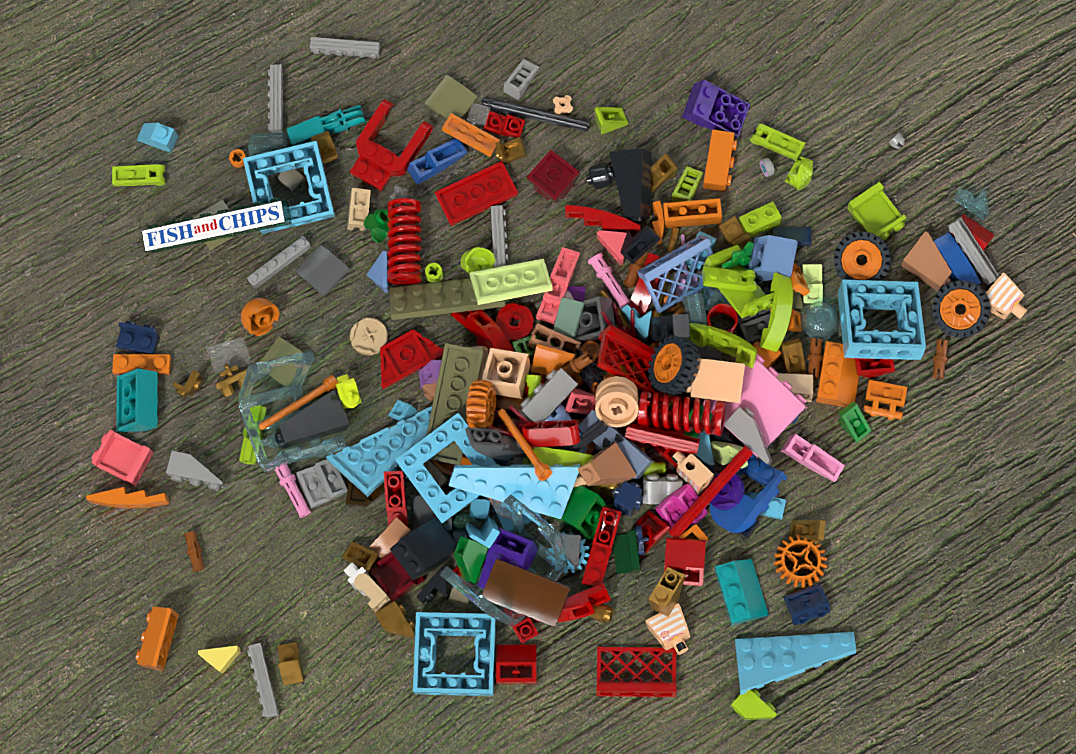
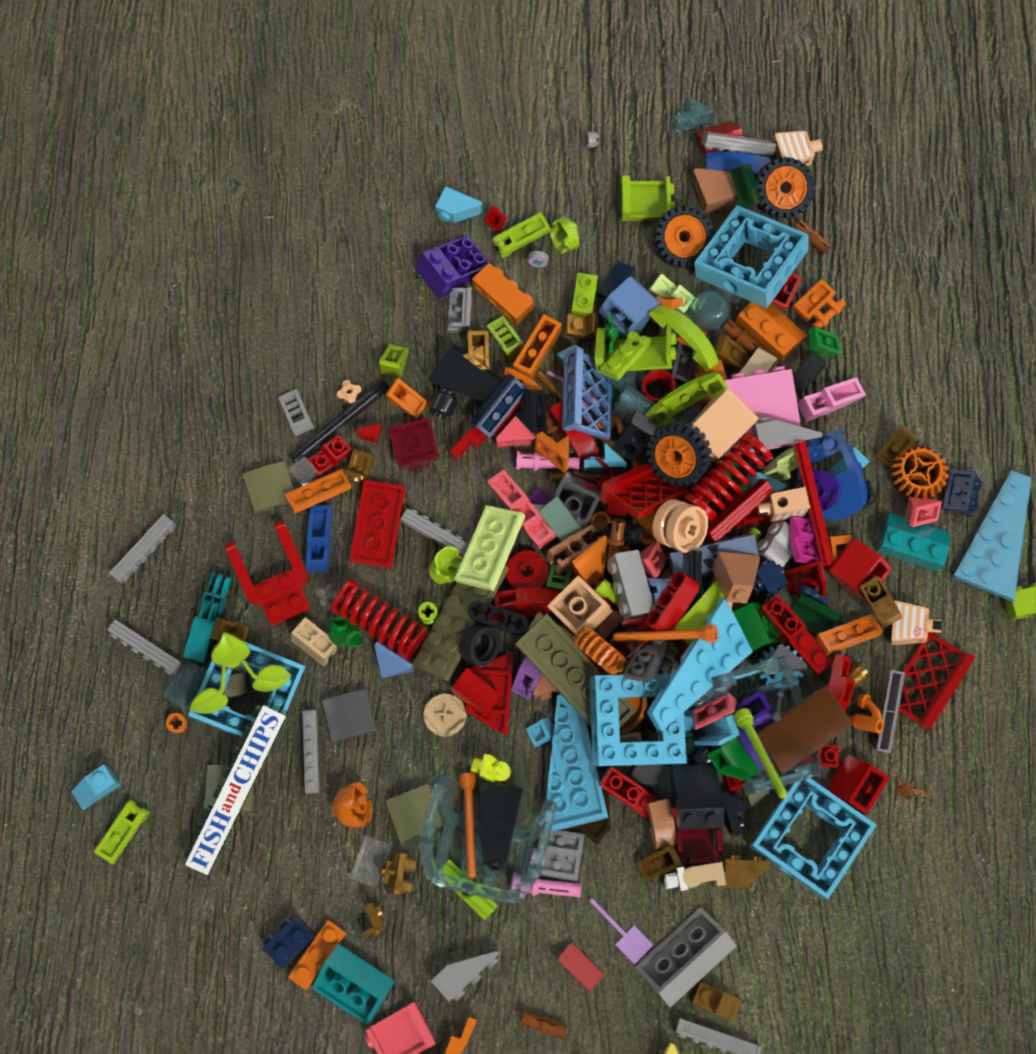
camera: 65 degrees left, 0 degrees up
(251, 550) = (580, 967): none -> red slope
(293, 577) = (632, 943): none -> lavender piece
(301, 154) = (230, 653): none -> lime plant
(306, 619) = (685, 956): none -> light grey slope
(397, 344) = (476, 693): none -> red brick
(433, 311) = (468, 641): none -> black tyre
(453, 315) = (482, 618): none -> black beam
(496, 519) = (713, 710): none -> coral slope
(501, 543) = (745, 720): none -> lime piece
(519, 564) = (776, 716): none -> dark grey hinge
(539, 706) = (906, 790): none -> clear orange hand
(543, 144) = (371, 433): none -> red slope
(569, 643) = (868, 723): none -> orange plant
(584, 147) = (405, 398): none -> orange slope
(590, 654) = (891, 711): none -> light grey piece
(619, 281) = (555, 452): none -> orange slope
(623, 215) = (499, 405): none -> dark blue slope
(627, 586) = (849, 634): none -> orange plate
(684, 140) = (459, 310): none -> light grey hinge
(764, 79) = (456, 206): none -> medium azure slope
(768, 582) = (922, 511): none -> coral slope
(777, 114) = (495, 219): none -> red slope
(819, 424) = (808, 371): none -> black tyre
(937, 278) = (745, 186): none -> dark green panel

